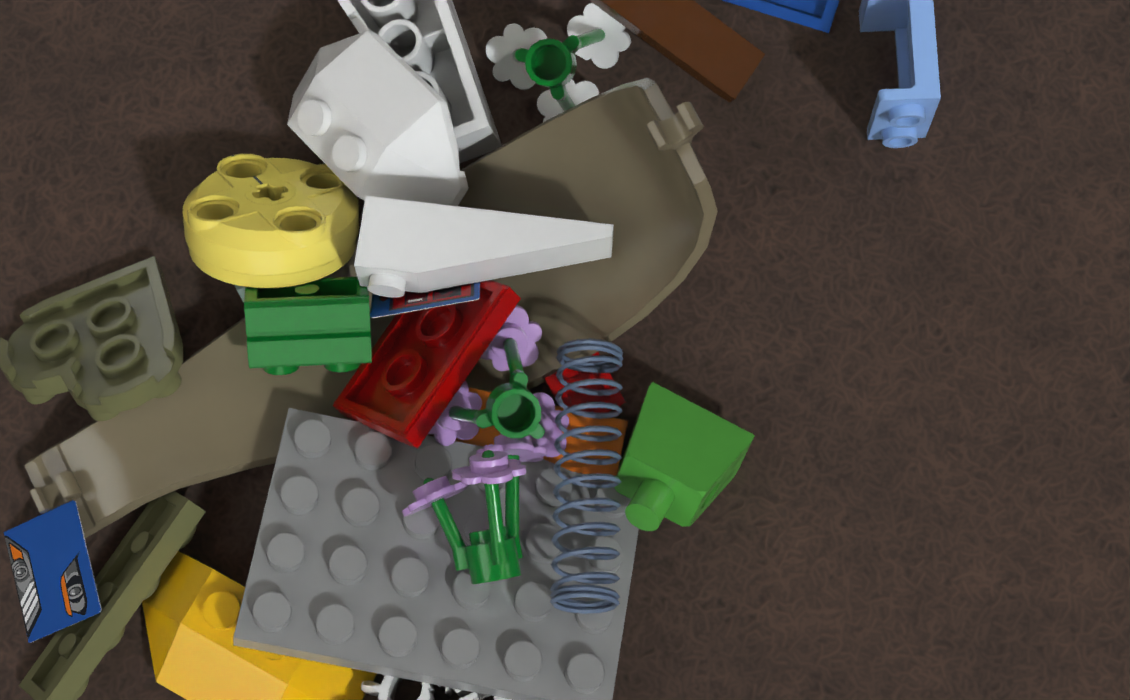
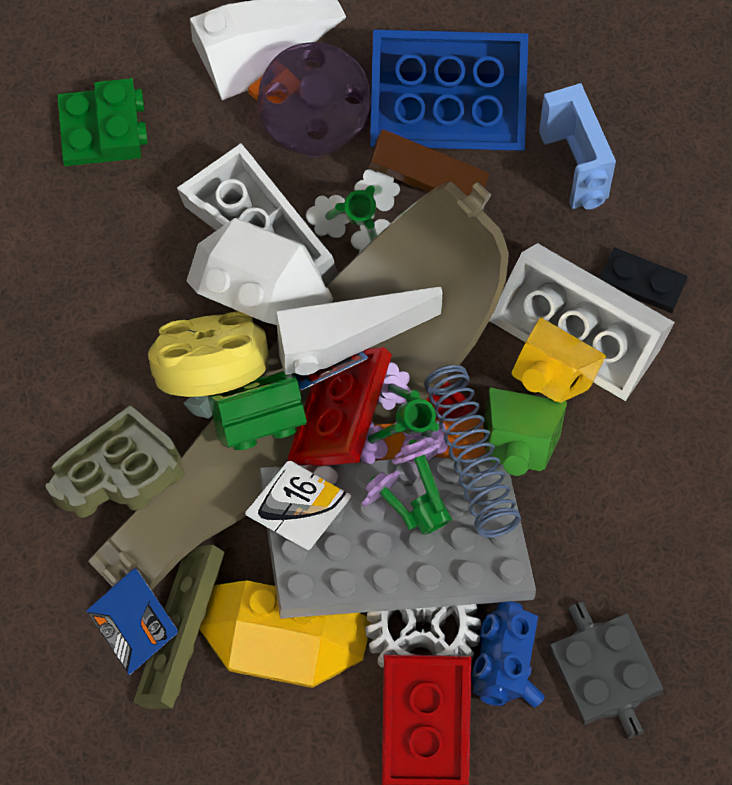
camera: 25 degrees left, 10 degrees down
(316, 484) = (298, 505): none -> sticker
(758, 372) = (557, 363): none -> yellow torso
(820, 314) = (588, 310): none -> white slope
(932, 277) = (644, 280): none -> black plate

